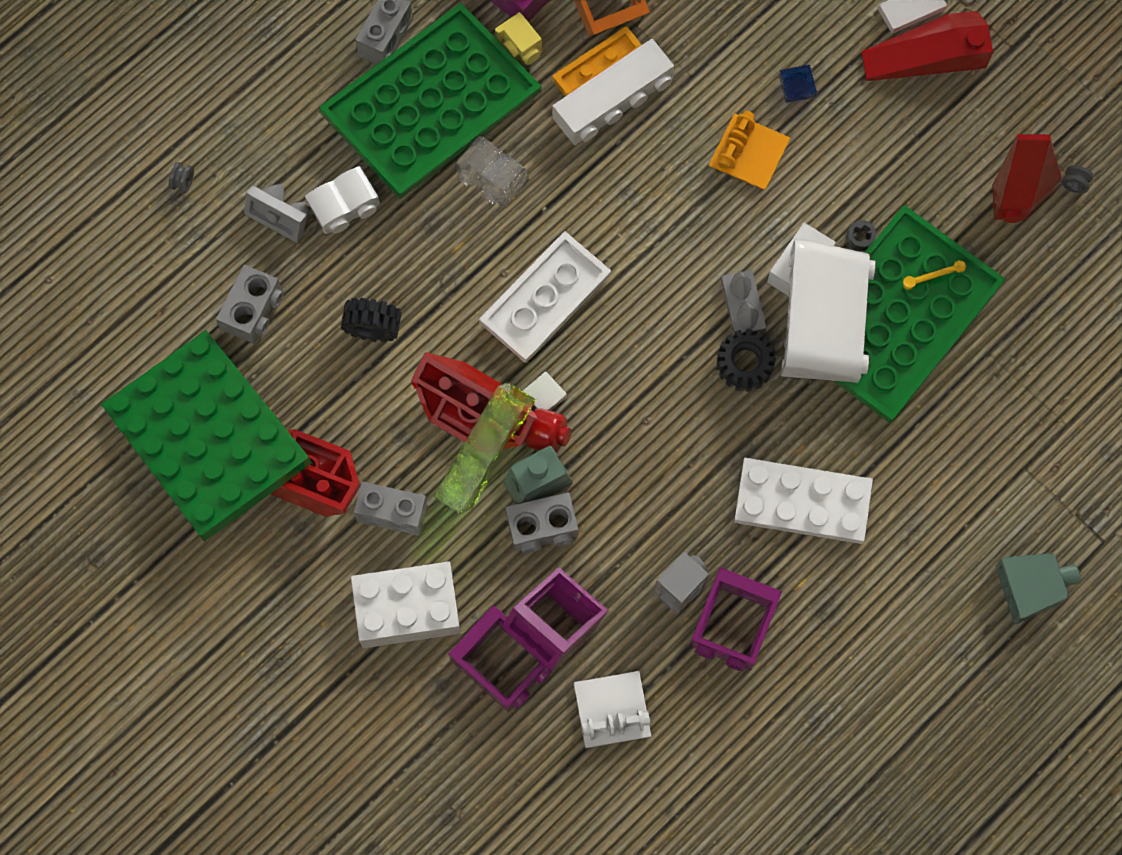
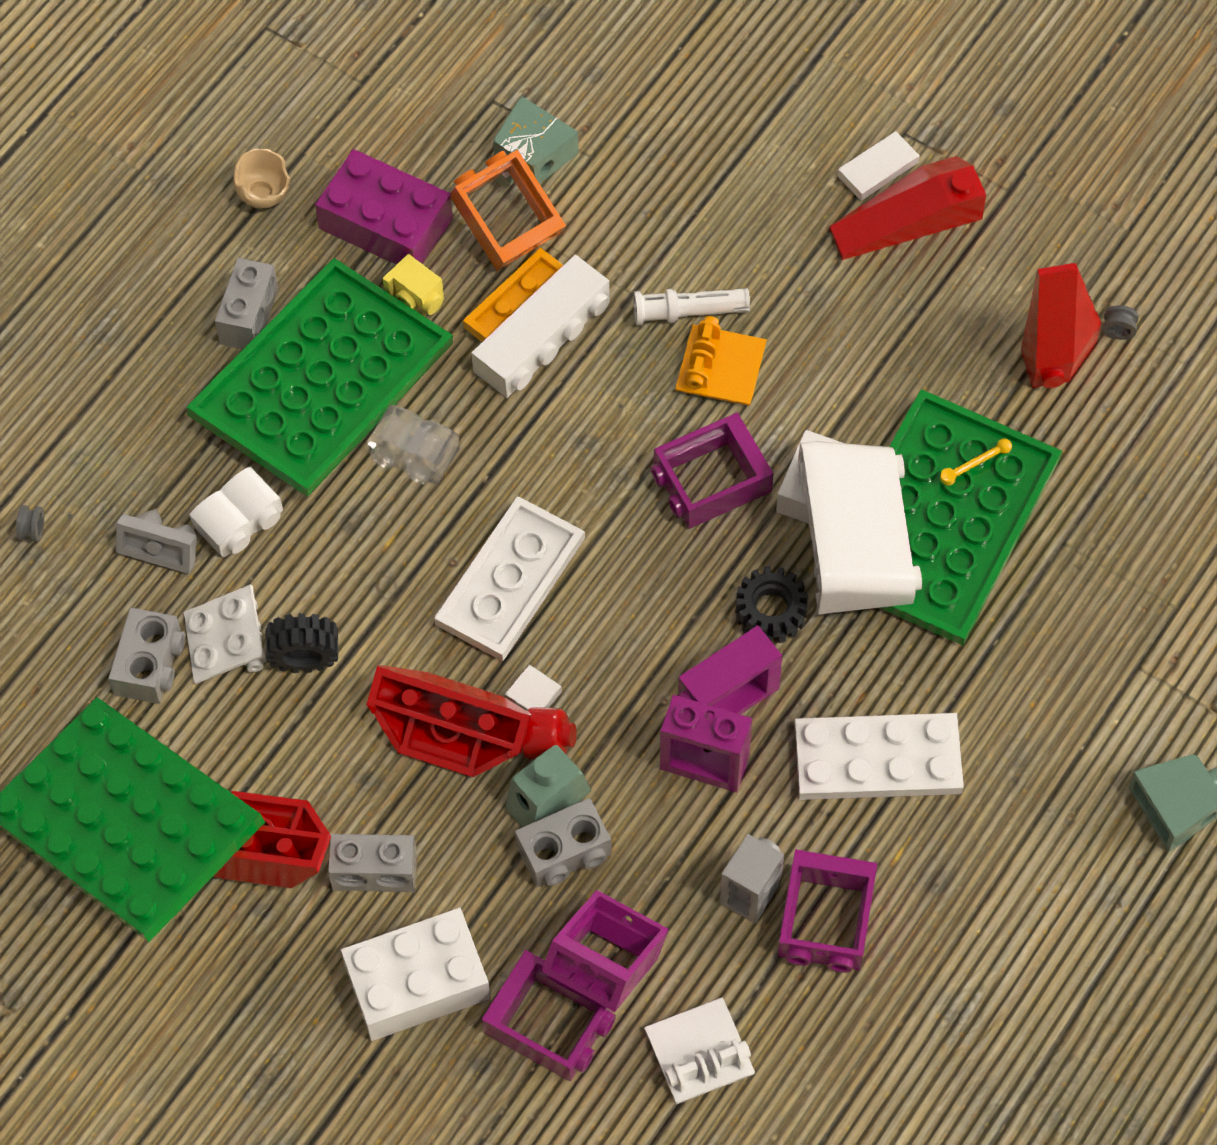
camera: 10 degrees left, 10 degrees down
(314, 299) = (225, 635): none -> white hinge
(490, 434) = (465, 784): clear neon green arch -> none
(668, 473) = (688, 735): none -> magenta window
(697, 420) = (735, 675): none -> magenta window
(720, 95) = (673, 305): none -> white pin
(741, 209) = (729, 432): none -> magenta window
(743, 302) = (752, 538): light grey tile -> none
(797, 83) = (761, 276): clear blue plate -> none
(858, 226) = (870, 427): dark grey bush -> none

